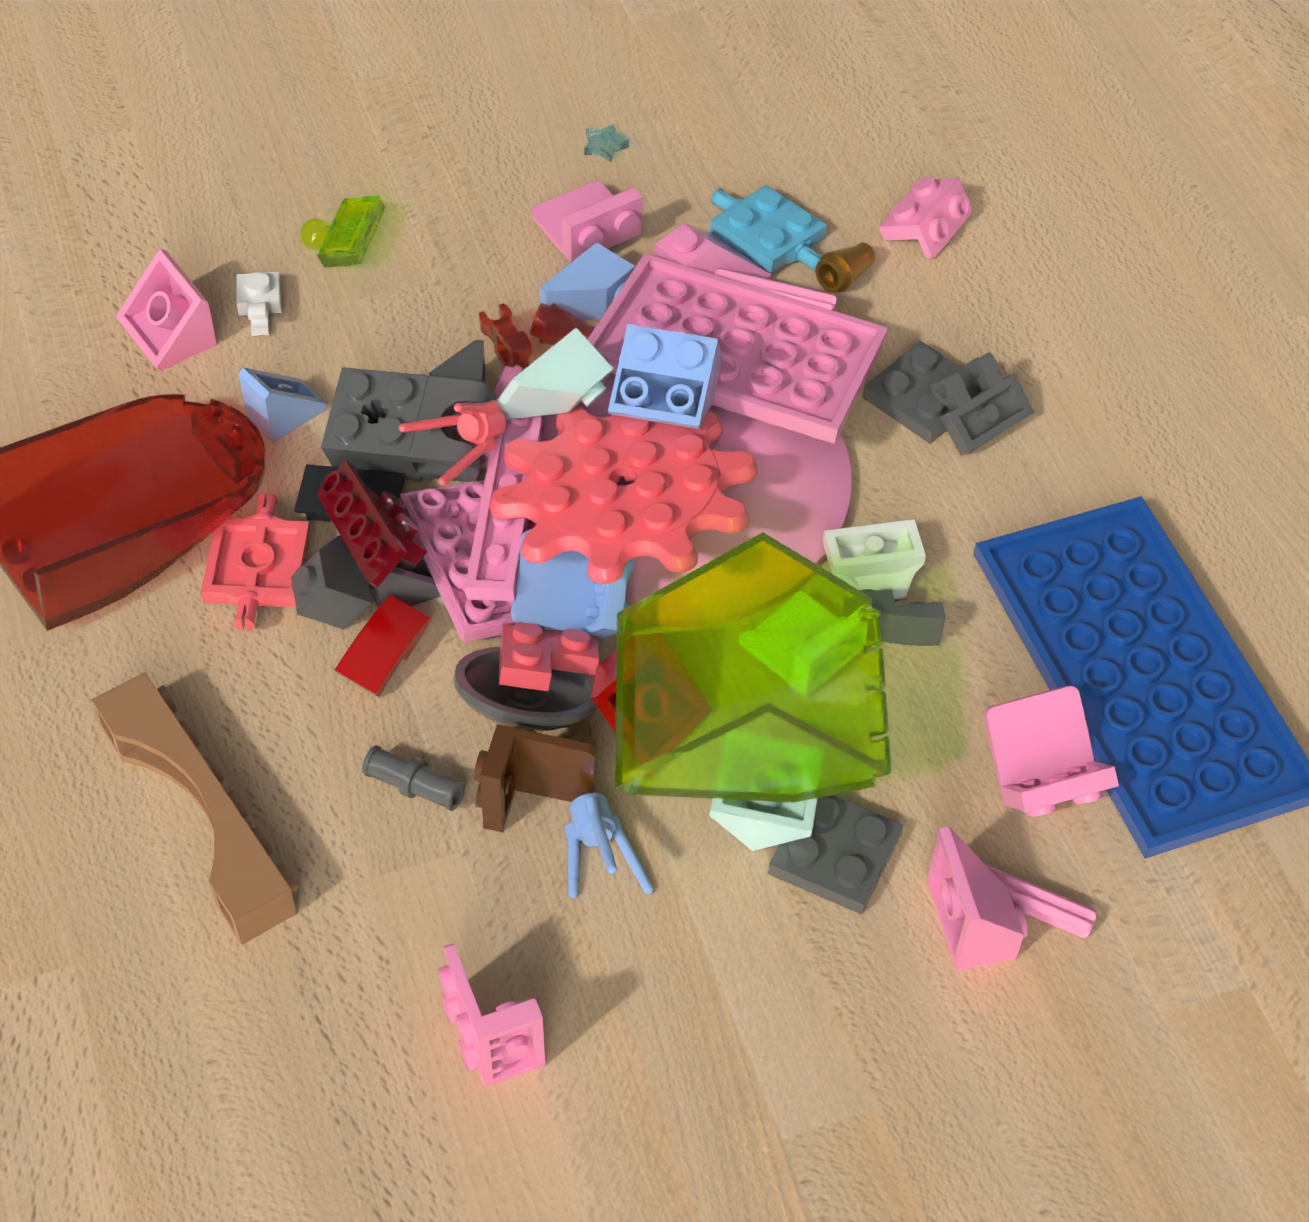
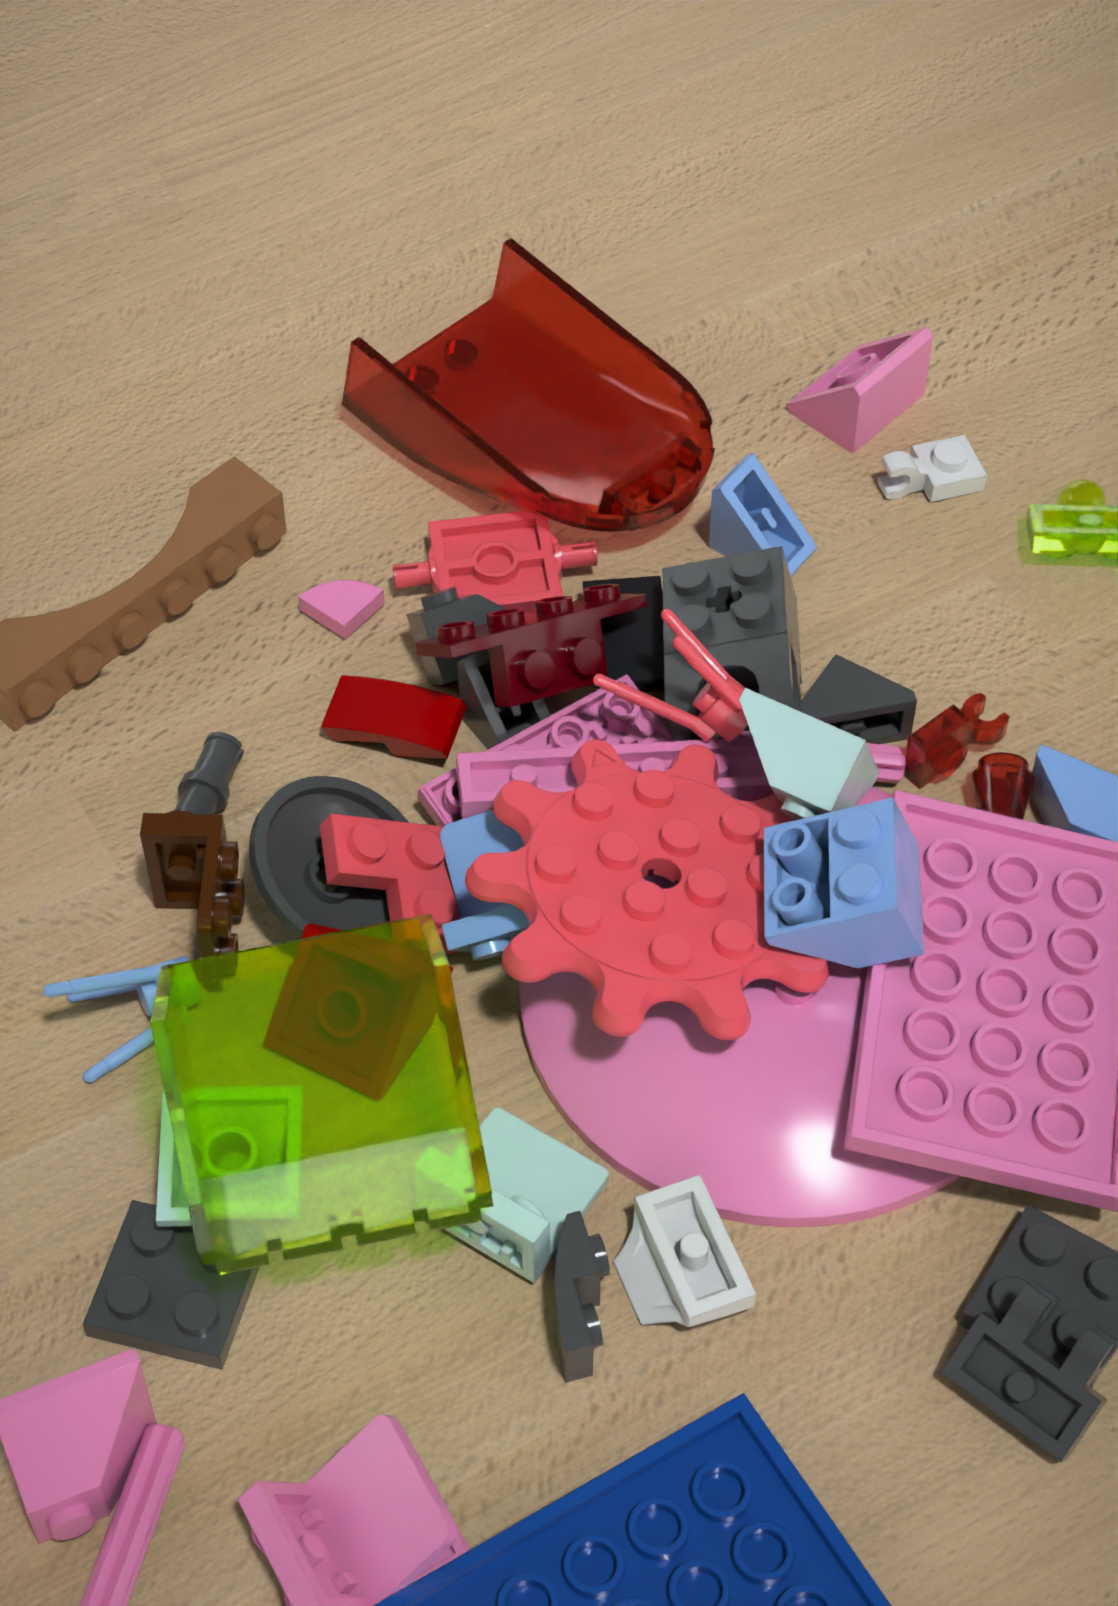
camera: 80 degrees right, 0 degrees up
(253, 667) = (342, 604): none -> bright pink tile

